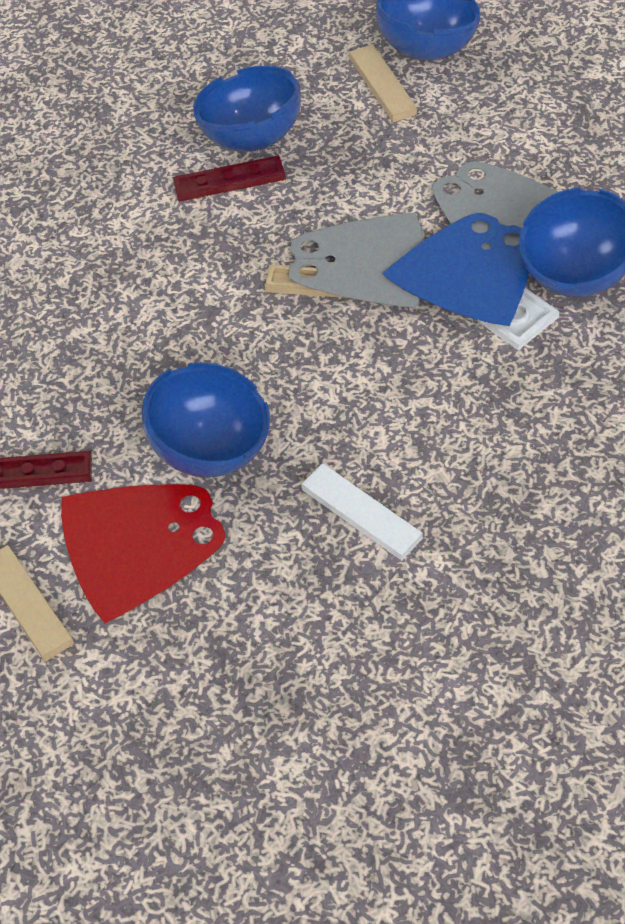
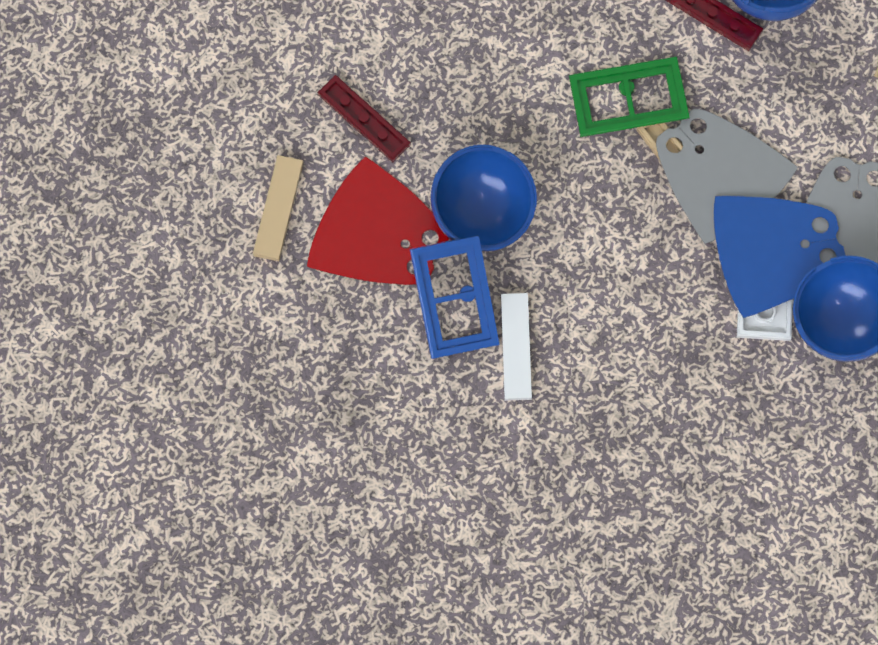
camera: 45 degrees right, 20 degrees up
(211, 263) = (624, 75): none -> green door
(284, 489) = (467, 293): none -> blue door

